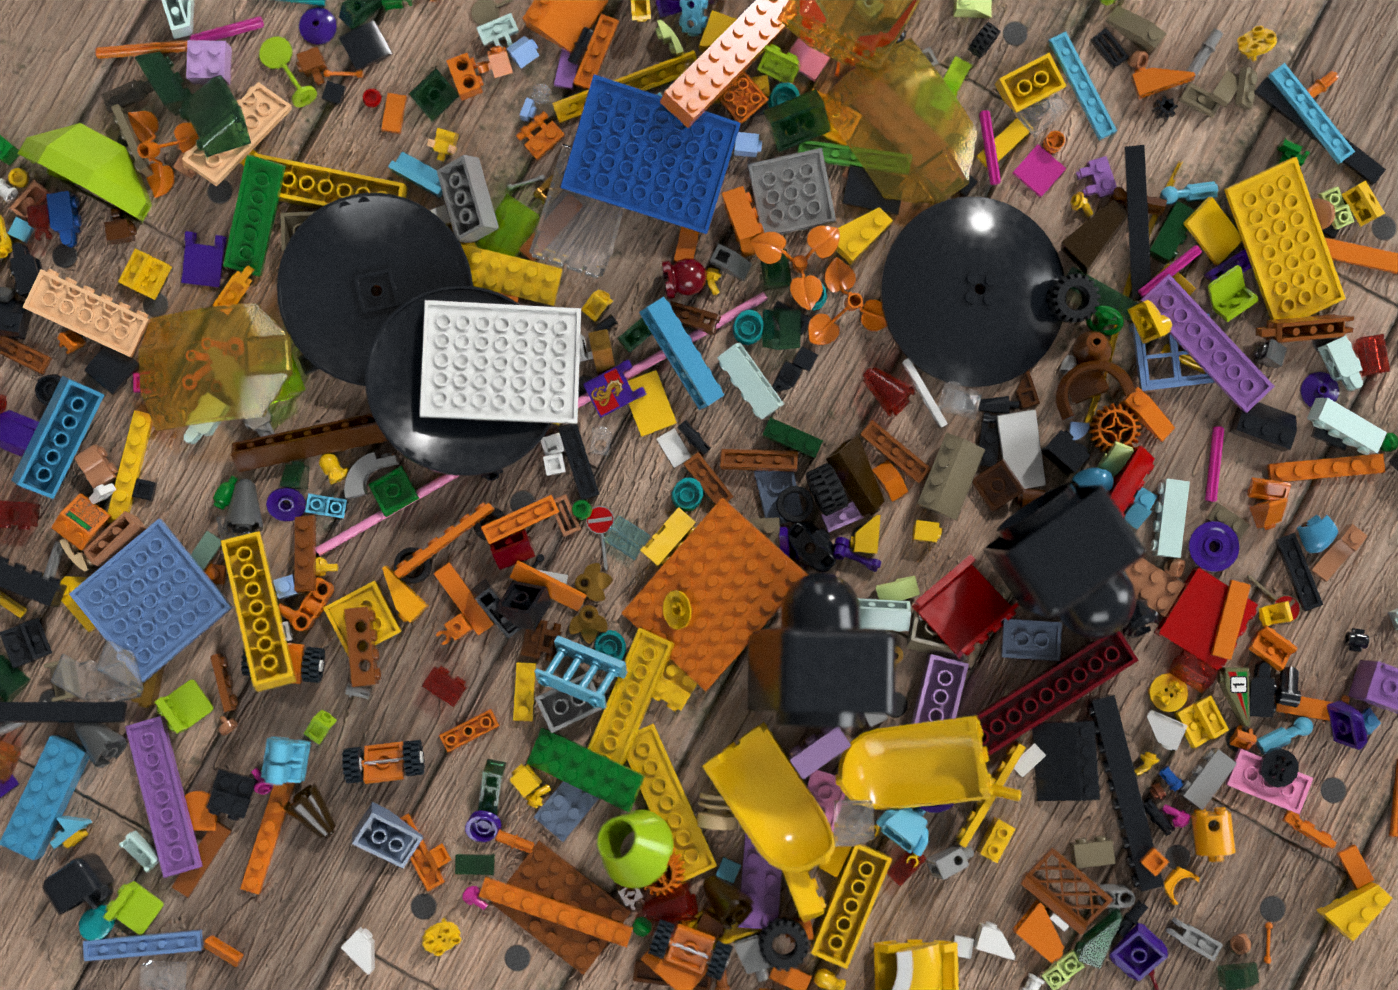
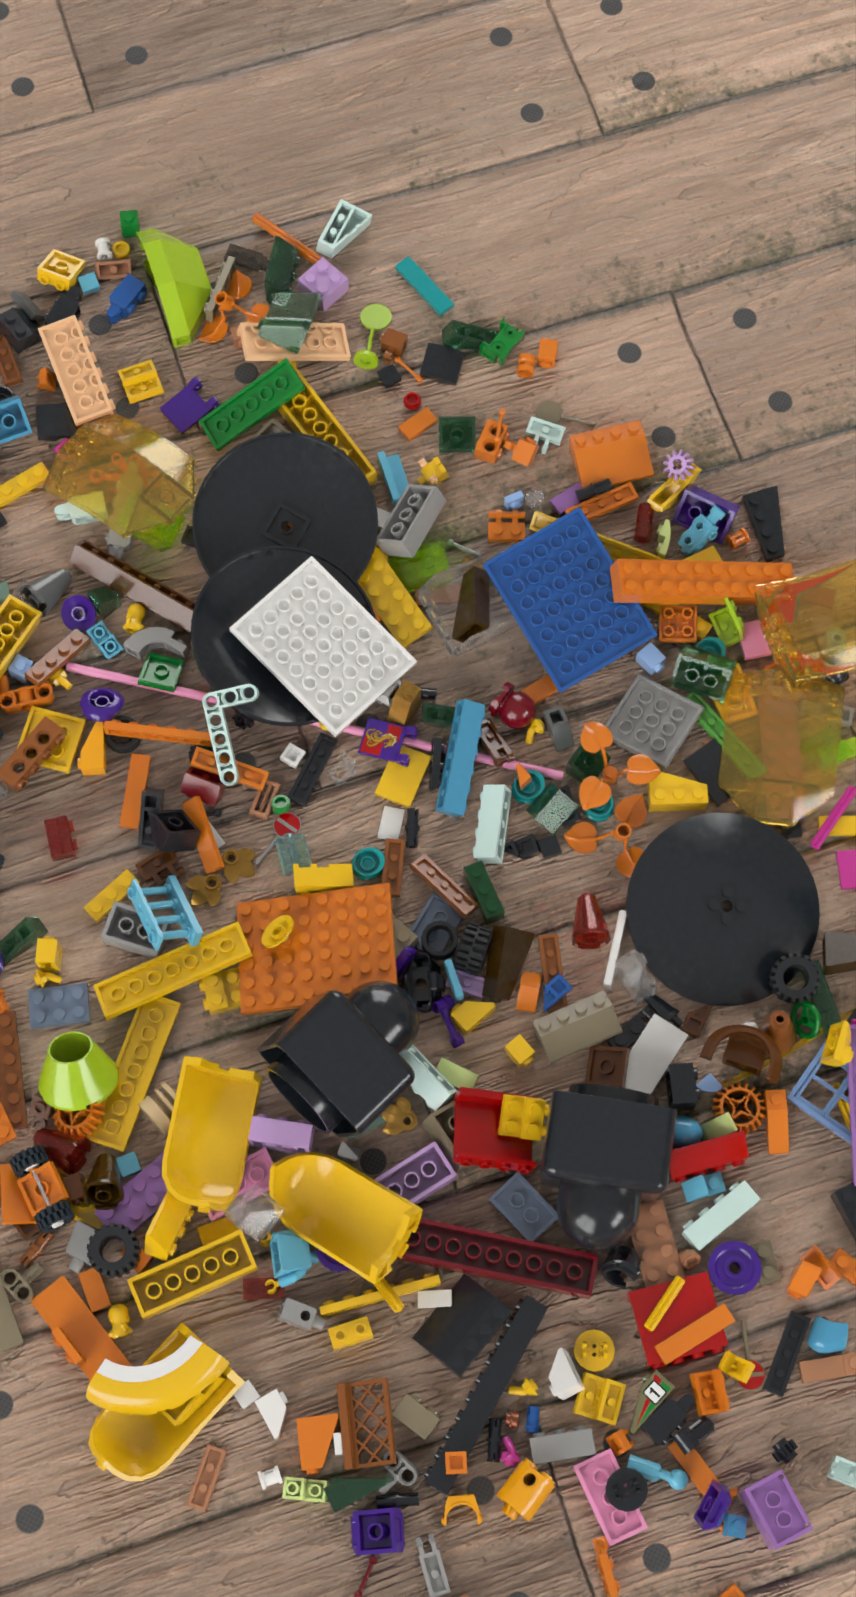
camera: 45 degrees right, 15 degrees down
(39, 219) = (106, 285): clear red brick -> none
(119, 229) = (153, 338): reddish brown brick -> none
(224, 493) = (43, 568): green plant -> none
(229, 30) = (360, 277): dark pink axle -> none
(235, 288) = (193, 441): light orange hinge -> none
(318, 34) = (422, 331): dark purple dish -> none
(374, 558) = (101, 703): none -> dark purple hat
(452, 45) = (502, 413): none -> orange hinge
(456, 628) = (109, 805): orange brick -> none
(458, 736) = (56, 889): orange tile -> none
(490, 498) = (222, 728): none -> light aqua beam
(523, 51) = (549, 459): light blue brick -> none
(552, 444) = (305, 740): white plate -> none
(581, 226) = (473, 605): none -> dark brown slope
(586, 769) = (99, 988): green plate -> none
(597, 304) = (433, 673): yellow bracket -> none
(611, 644) = (208, 918): teal piece -> none
(641, 38) = (644, 523): none -> clear red axle
(642, 926) = (23, 1143): green tile -> none
(667, 374) = (436, 765): none -> black hinge
(740, 325) = (523, 776): none -> orange slope
(742, 218) = (597, 704): orange wedge -> none
(834, 525) = (453, 980): none -> medium azure tile
(911, 465) = (555, 991): none -> blue tile
(976, 578) = (523, 1117): none -> yellow plate
(1191, 617) = (664, 1303): none -> yellow axle
(1193, 671) = (628, 1349): clear red brick -> none
(1214, 464) = (795, 1208): dark pink axle -> none

